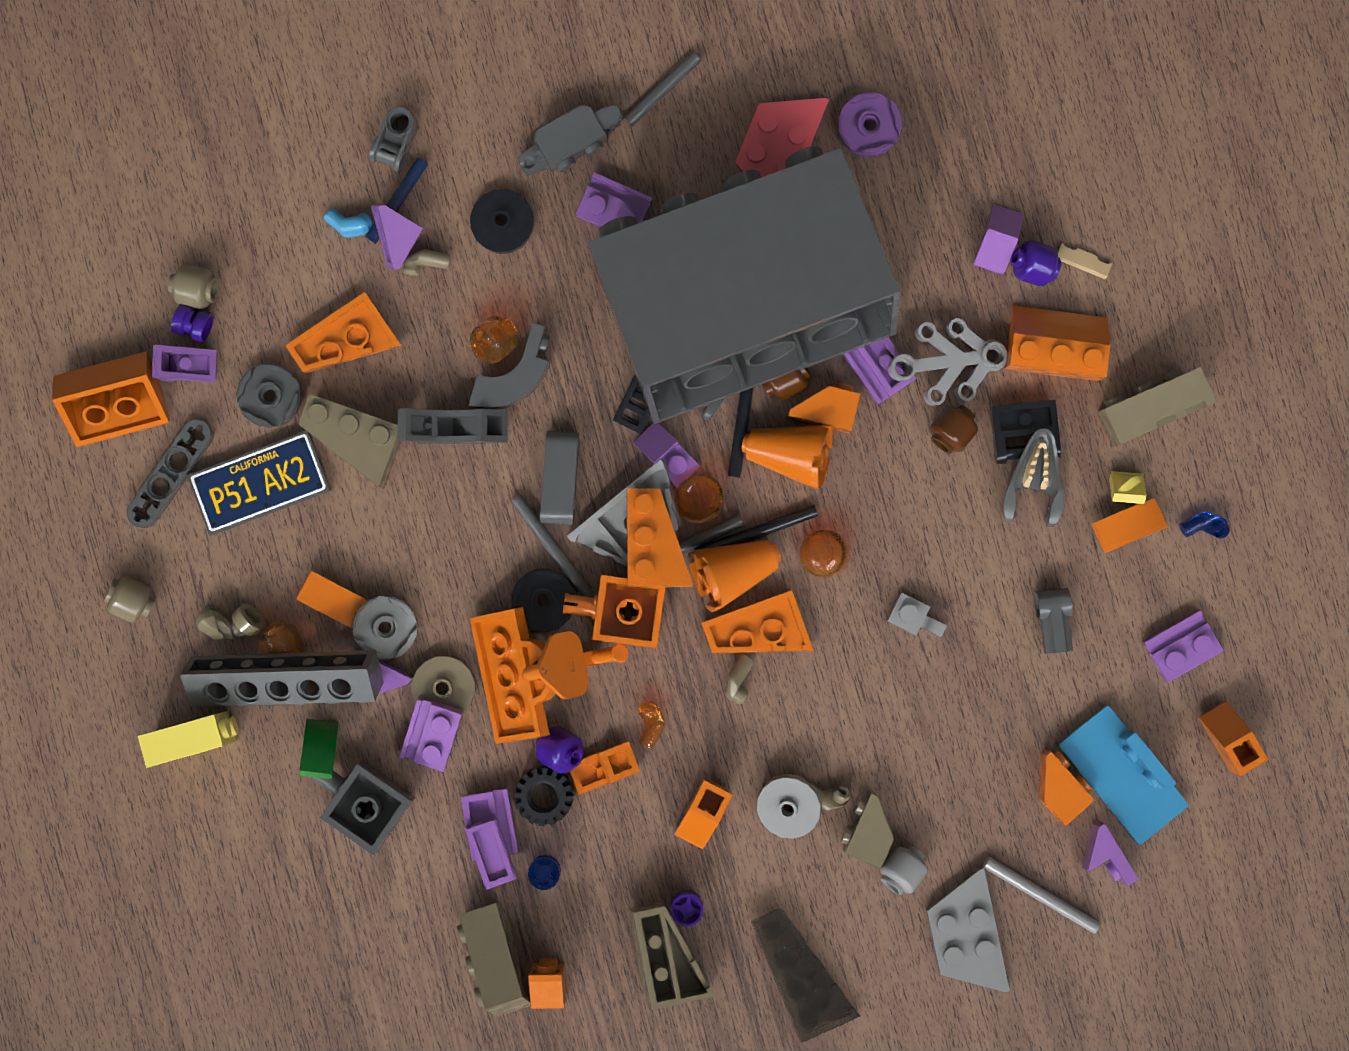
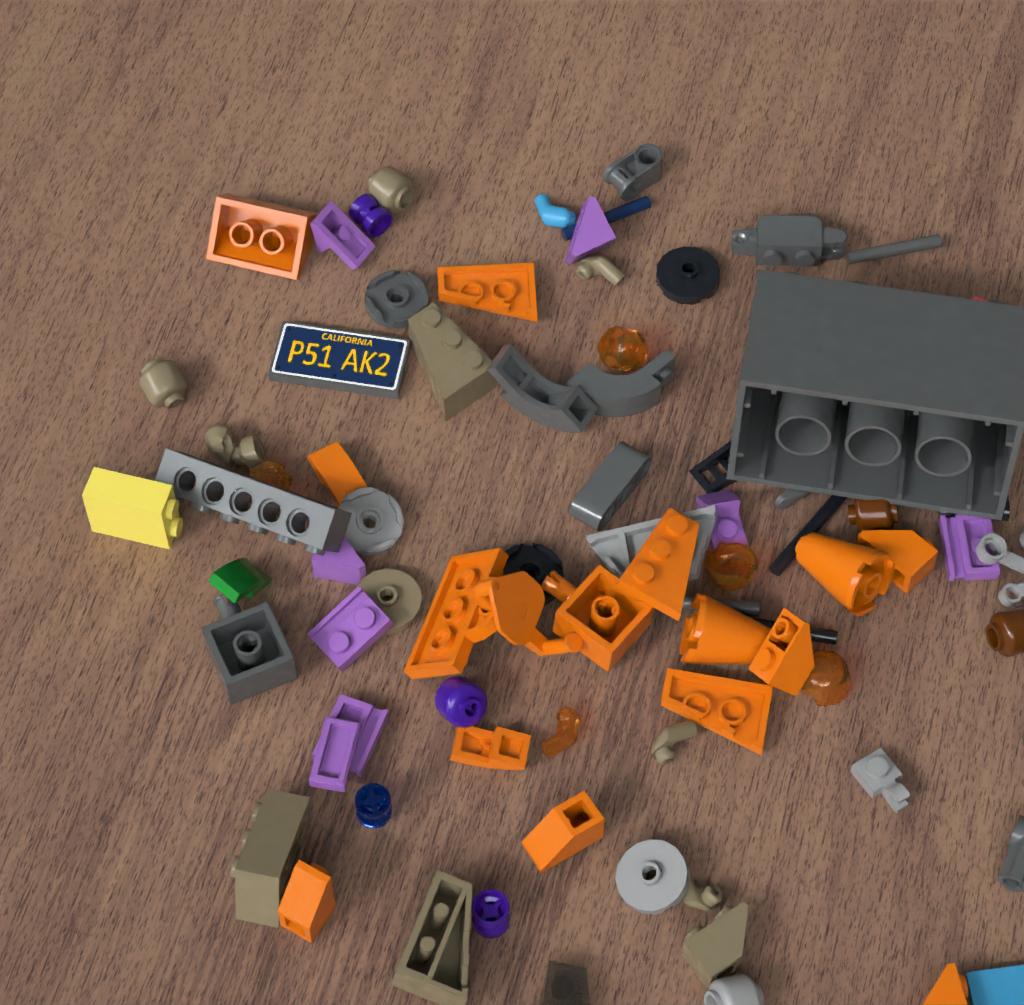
camera: 30 degrees right, 30 degrees down
(166, 470) = (267, 310): dark grey beam -> none
(539, 815) = (413, 720): black tyre -> none
(552, 547) = (565, 533): dark grey bar -> none
(790, 568) = (785, 654): none -> orange slope

